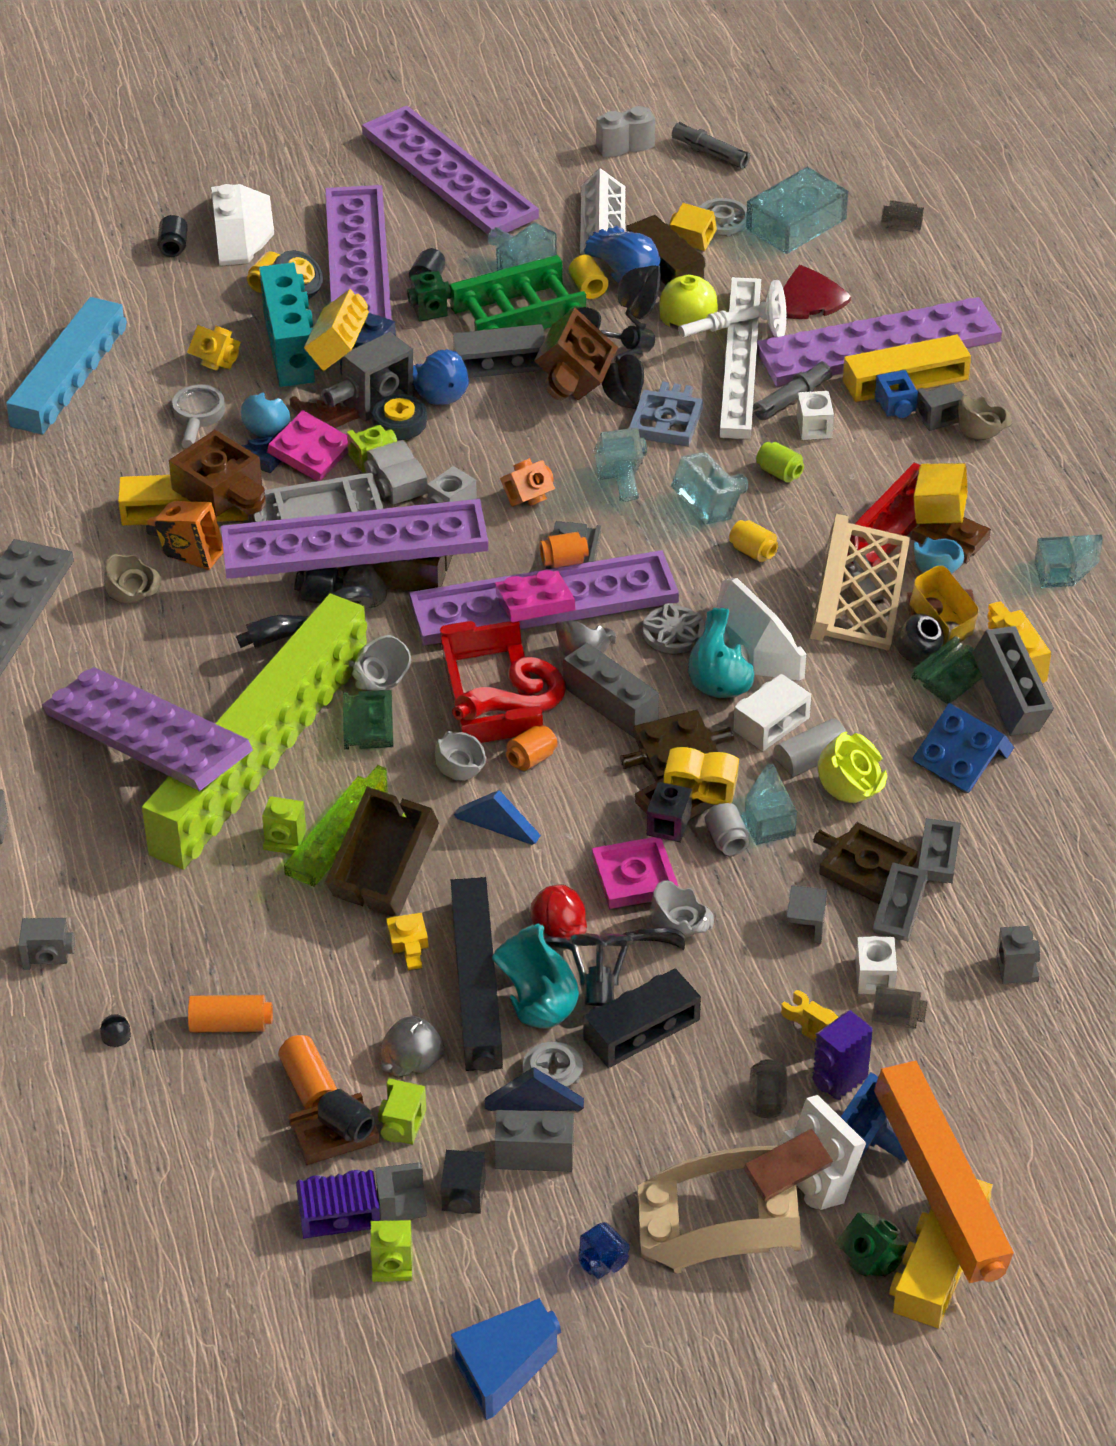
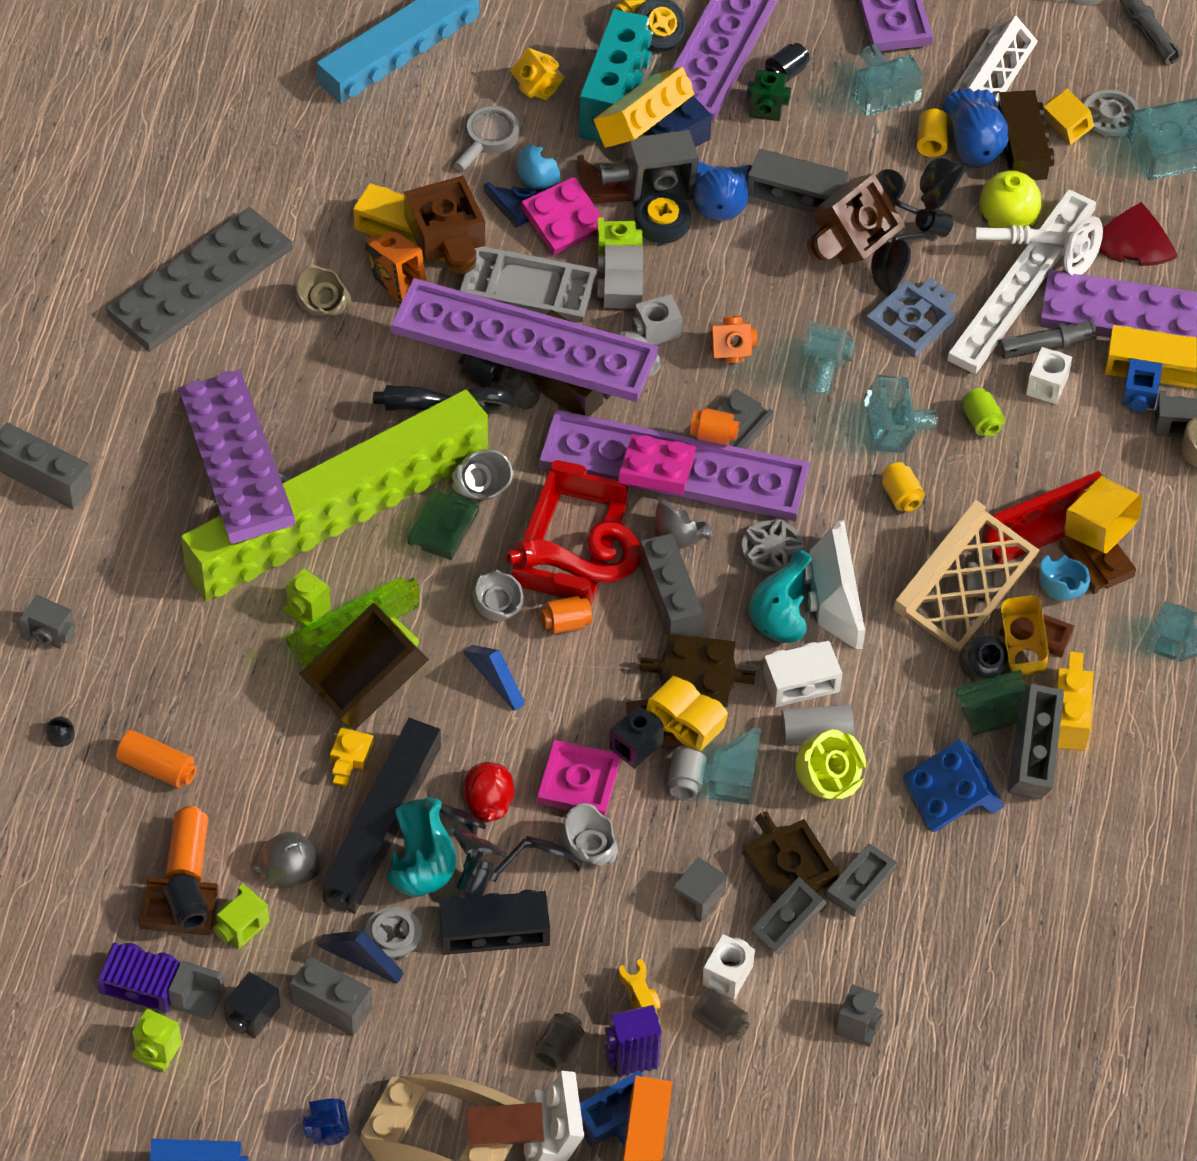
camera: 25 degrees right, 10 degrees up
(512, 283) = (853, 111): green fence -> none

